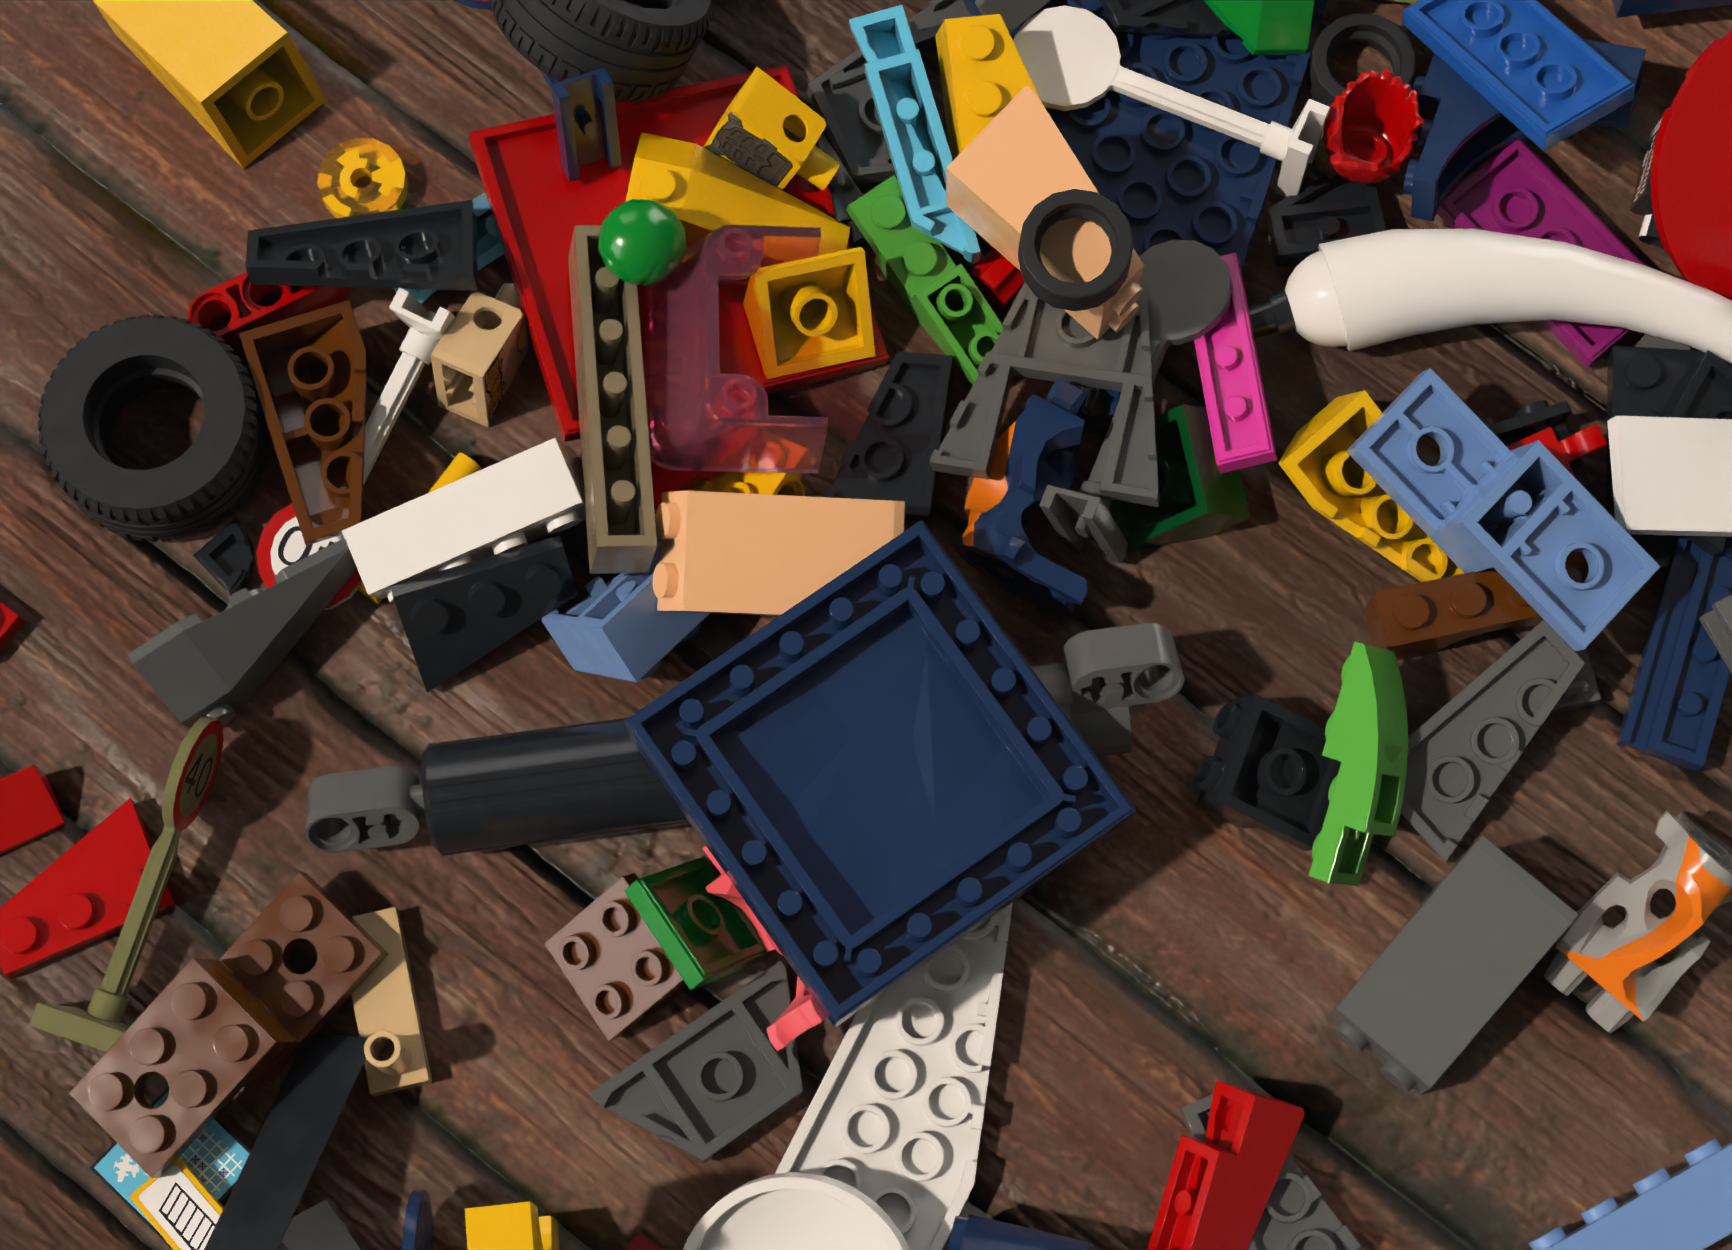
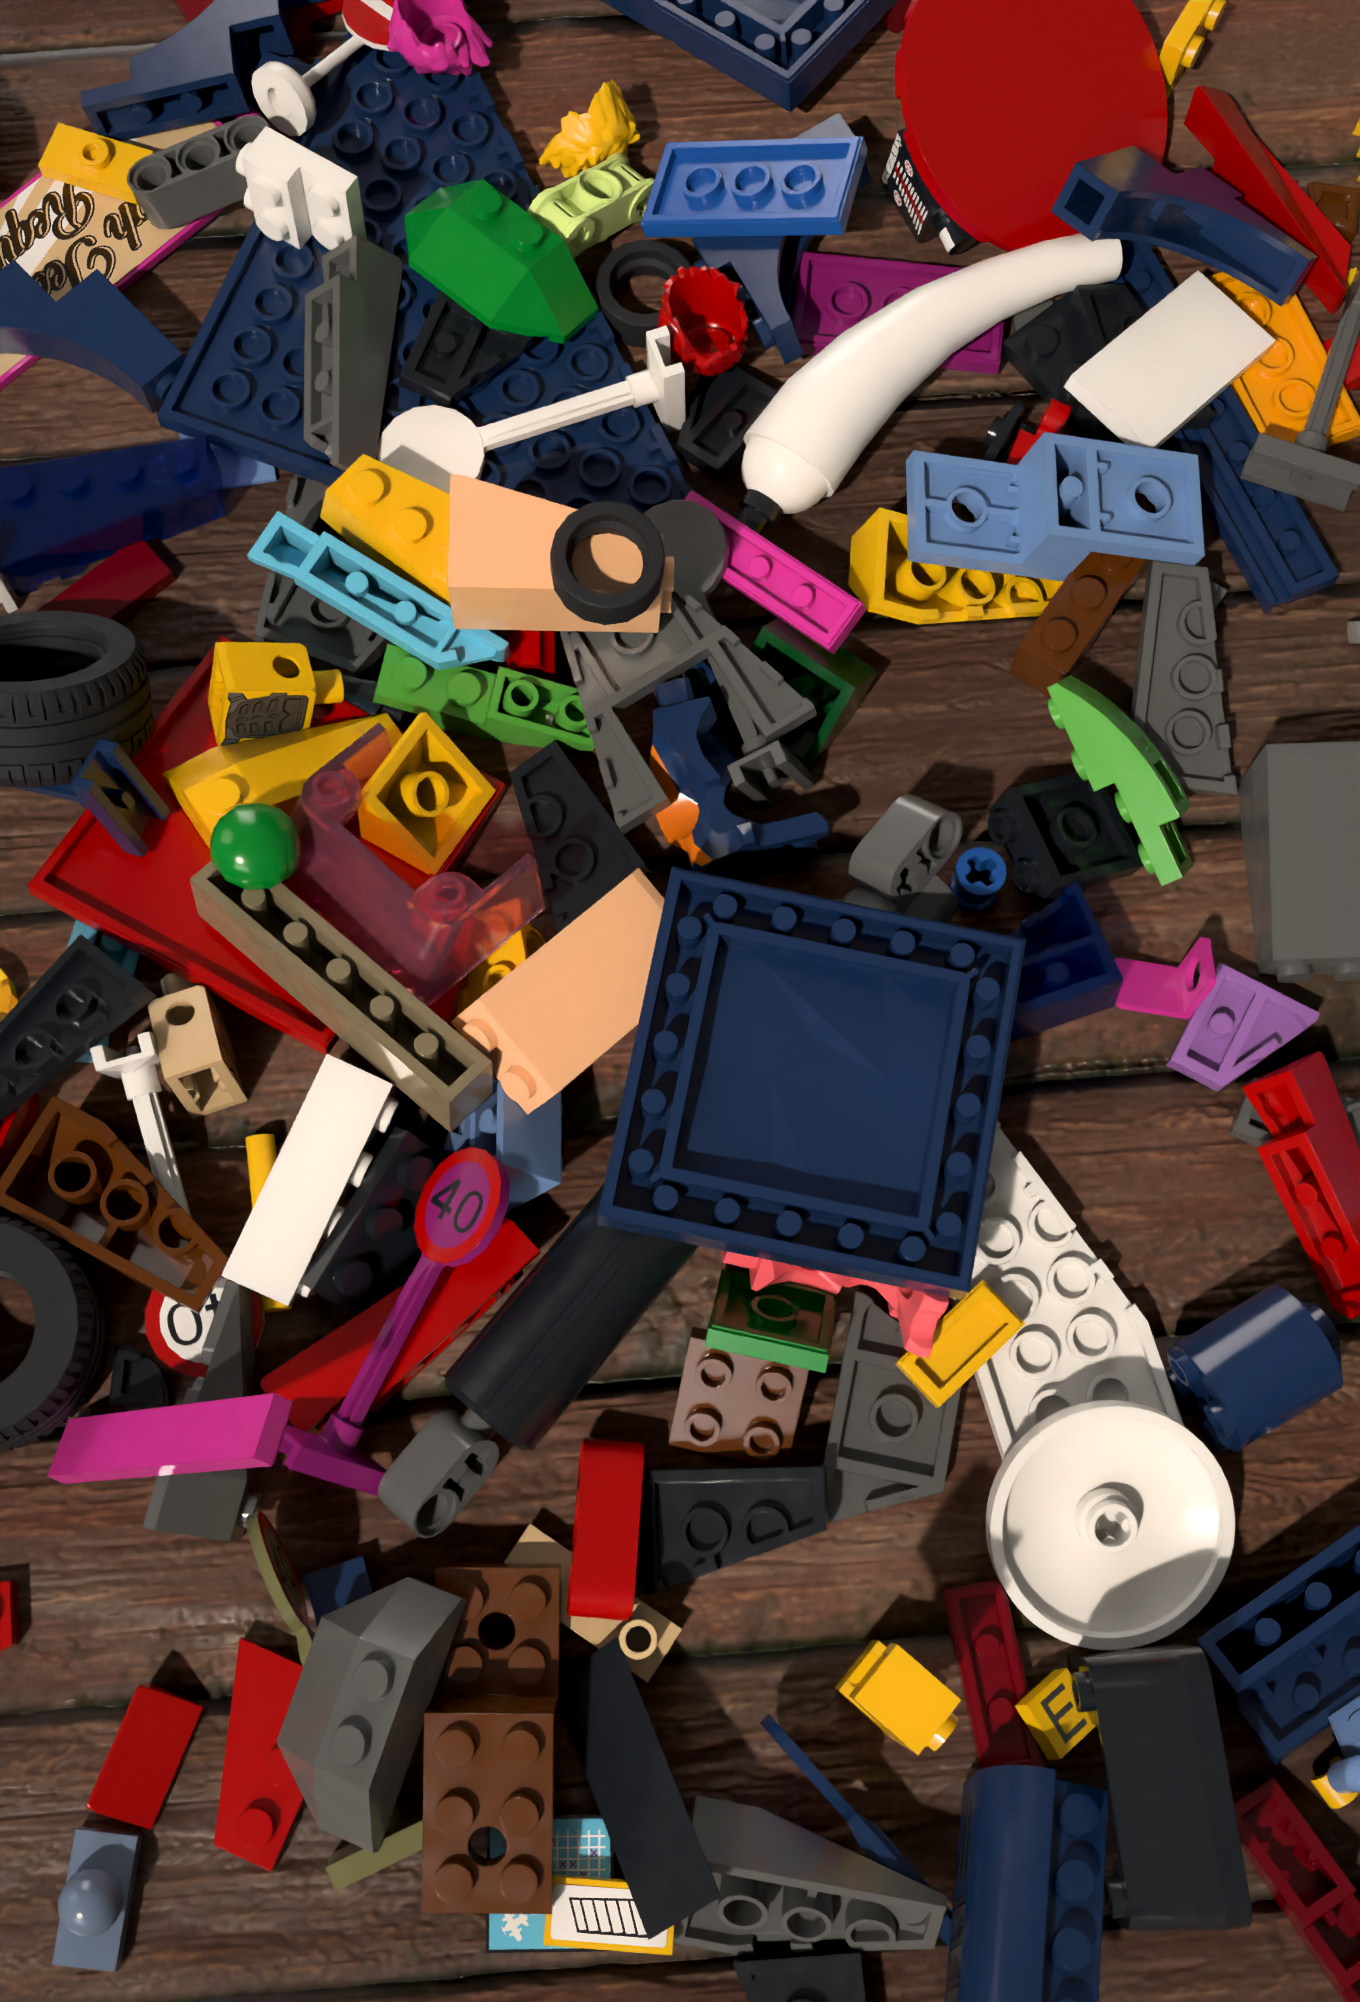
camera: 45 degrees left, 0 degrees up
(162, 913) = (366, 1704): none -> dark grey wedge
(197, 610) = (173, 1440): none -> dark pink tile
(225, 836) = (338, 1586): none -> dark blue tile
(431, 689) = (462, 1294): none -> red wedge
(440, 958) = (606, 1529): none -> red beam
(526, 644) = (452, 1226): none -> magenta piece
(533, 1030) = (725, 1515): none -> black wing
(817, 1068) = (962, 1344): none -> yellow tile
(1155, 861) = (1064, 966): none -> clear blue wedge
(1187, 735) = (978, 863): none -> blue bush
(1235, 951) = (1167, 988): none -> dark pink bracket
(1263, 1037) = (1236, 1029): none -> medium lavender wing

